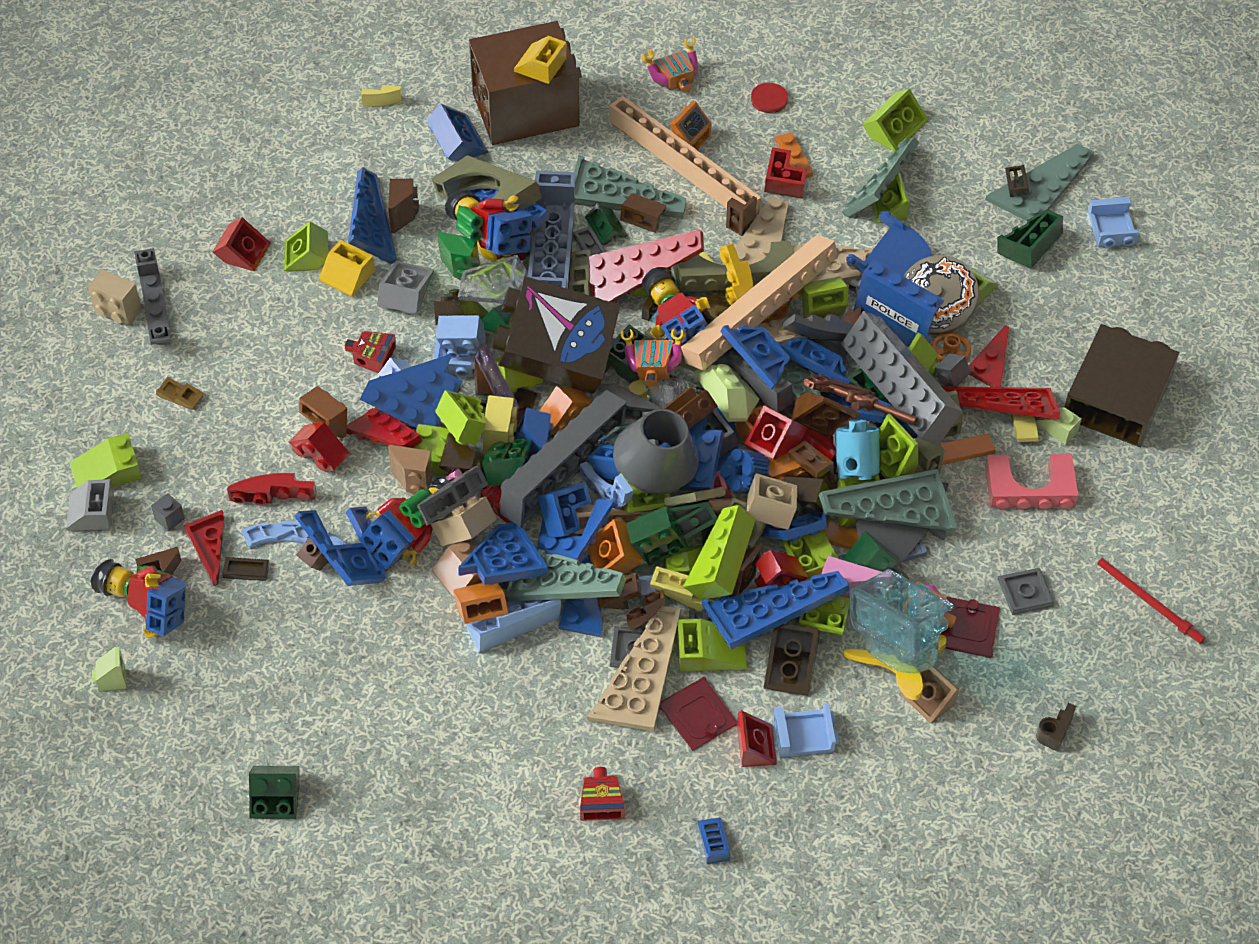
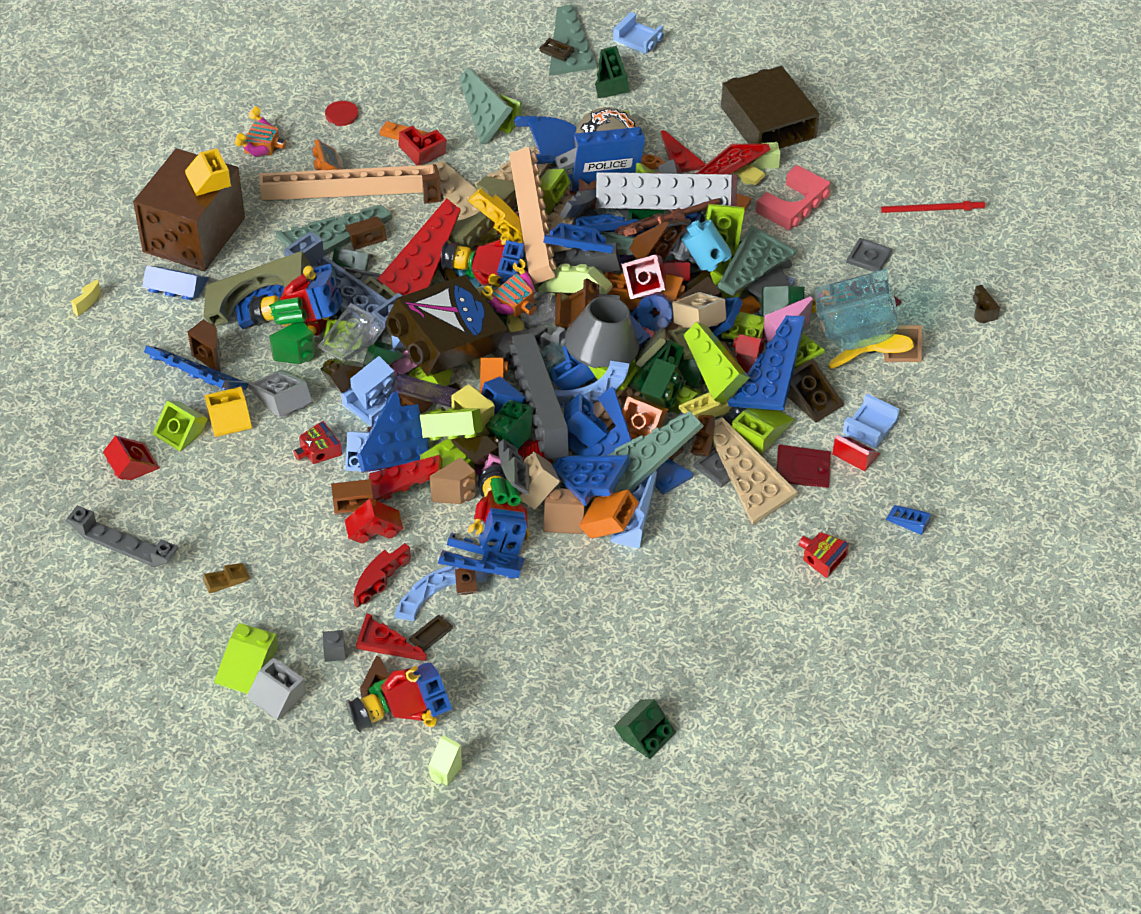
camera: 50 degrees left, 5 degrees down
(114, 297) = (95, 557): tan brick -> none
(812, 461) = (686, 272): reddish brown panel -> none
(896, 120) = (437, 68): lime slope -> none

